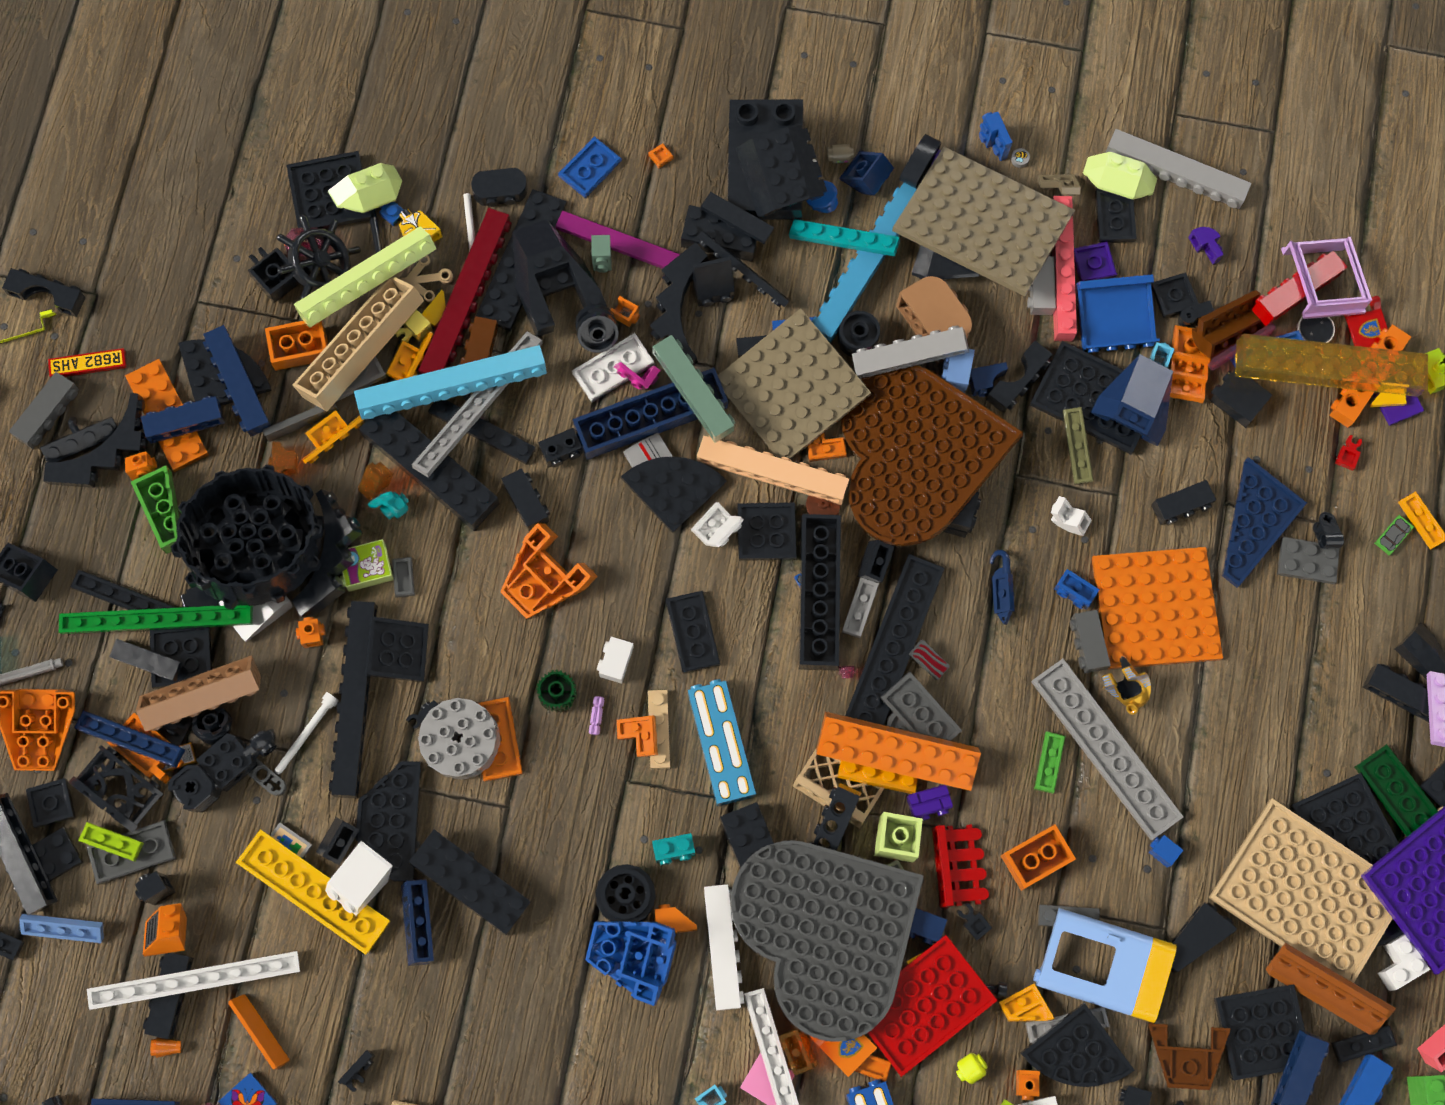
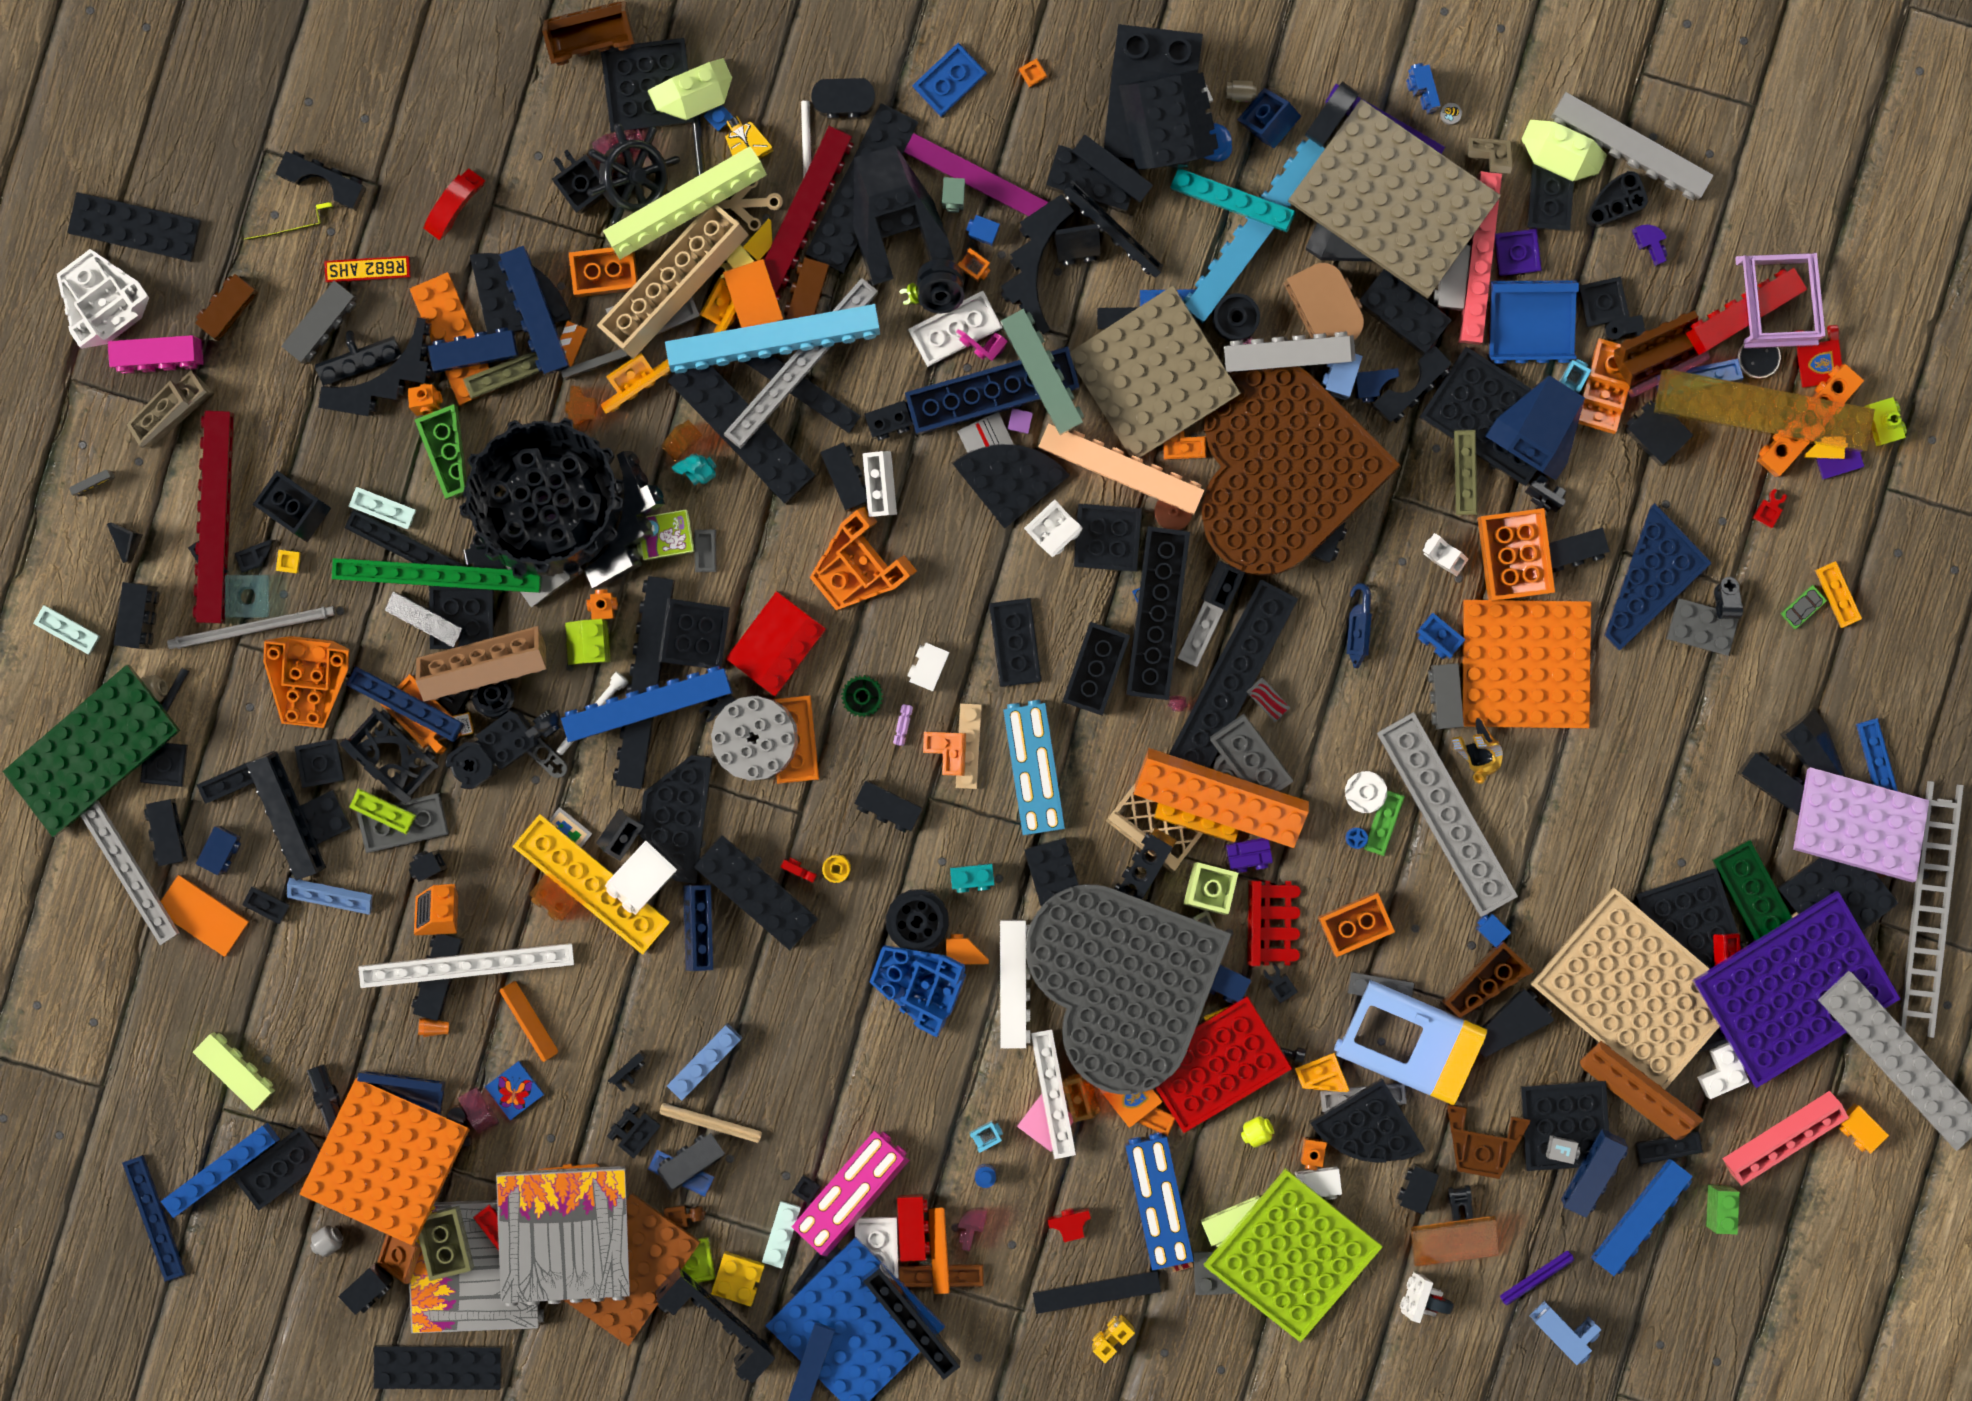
camera: 10 degrees right, 15 degrees up
(18, 621) = (288, 561): none -> yellow plate
(105, 566) = (382, 508): none -> light aqua plate
(158, 298) = (451, 203): none -> red arch
(210, 440) = (501, 375): none -> olive tile
(273, 406) = (572, 340): none -> orange tile
(274, 151) = (588, 31): none -> reddish brown windscreen
(278, 908) = (553, 898): none -> clear orange brick
(299, 665) = (587, 641): none -> lime slope
(355, 715) = (646, 705): none -> blue brick
(430, 347) = (753, 294): none -> orange tile
(431, 1054) = (704, 1062): none -> medium blue brick
(474, 653) = (776, 644): none -> red slope
(505, 856) = (793, 866): none -> red plate
(545, 853) = (836, 868): none -> yellow wheel
(557, 501) = (879, 483): none -> white brick
(574, 342) = (912, 292): none -> lime plate
(588, 791) = (887, 806): none -> black brick
(630, 282) = (983, 230): none -> blue brick
(678, 439) = (1020, 421): none -> medium lavender tile
(768, 646) = (1096, 668): none -> black brick
(1004, 316) = (1404, 311): none -> black brick
(1029, 735) = (1366, 792): none -> white tile
(1029, 775) = (1358, 835): none -> blue wheel
(1133, 510) = (1516, 554): none -> orange slope
(1151, 460) = (1544, 497): none -> black hips
(1168, 896) = (1487, 979): none -> reddish brown wedge
(1171, 206) = (1617, 193): none -> black beam
(1266, 1054) = (1562, 1149): none -> light grey brick
(1382, 843) = (1725, 946): none -> red slope

